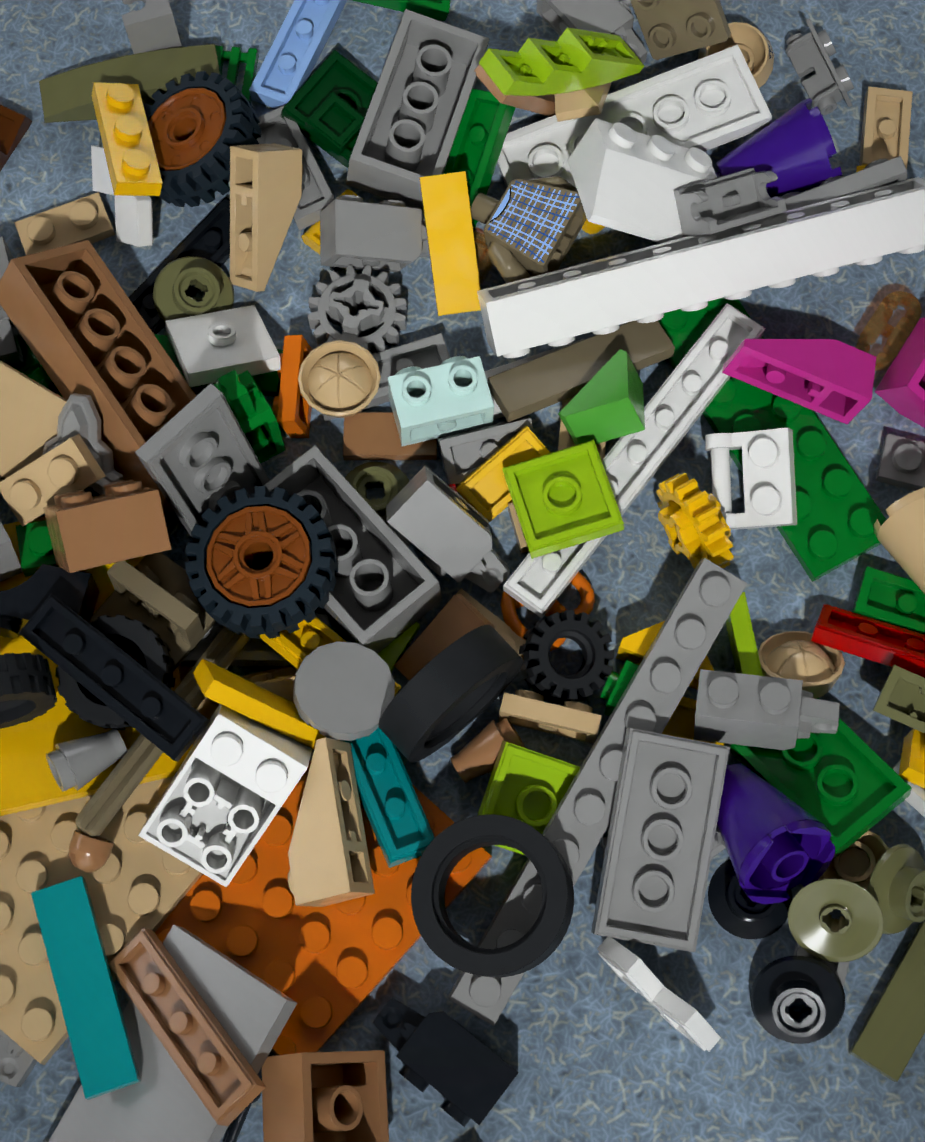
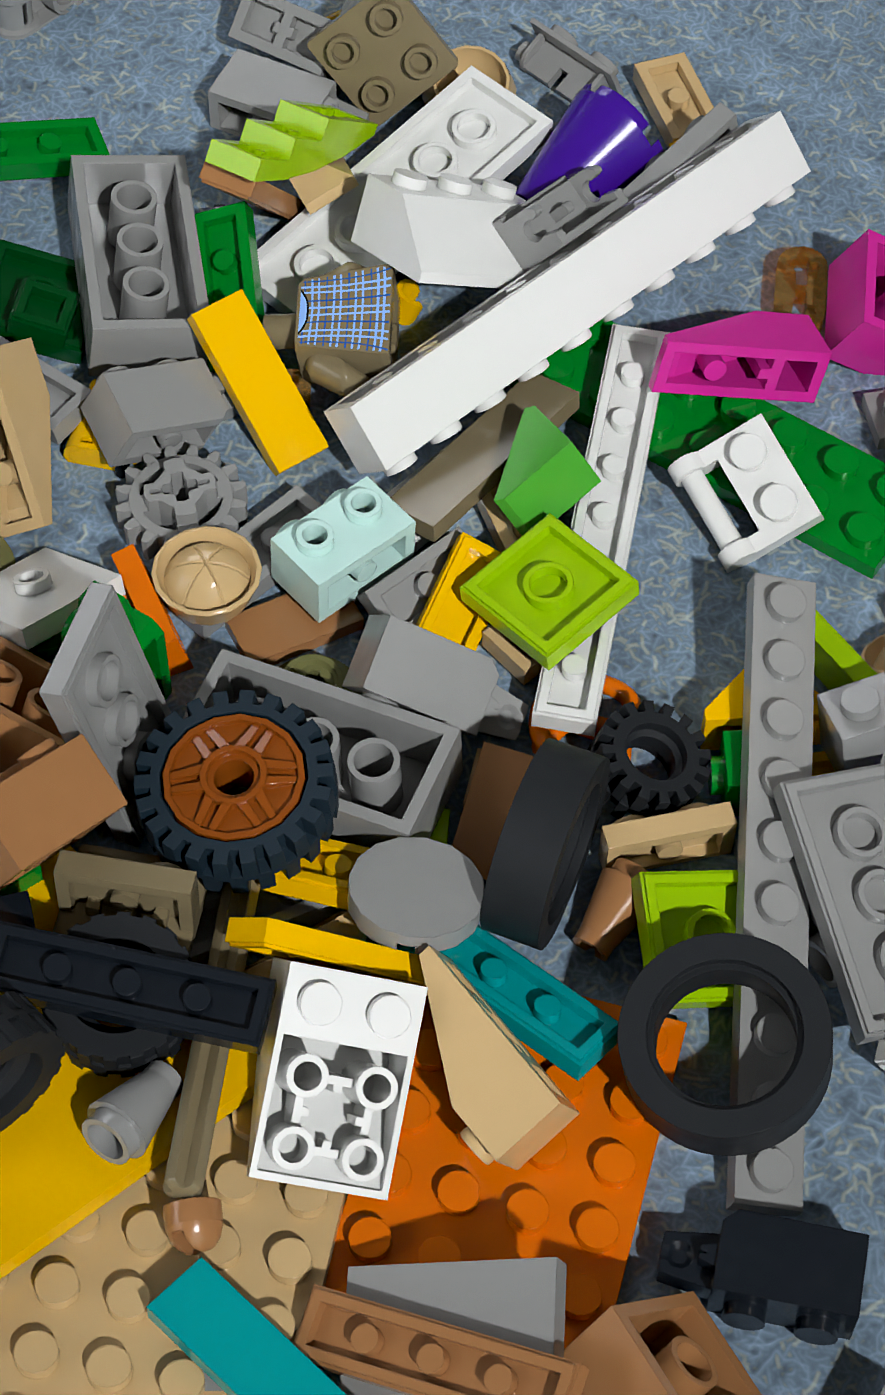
camera: 30 degrees left, 15 degrees down
(693, 521) = (710, 554): yellow gear -> none

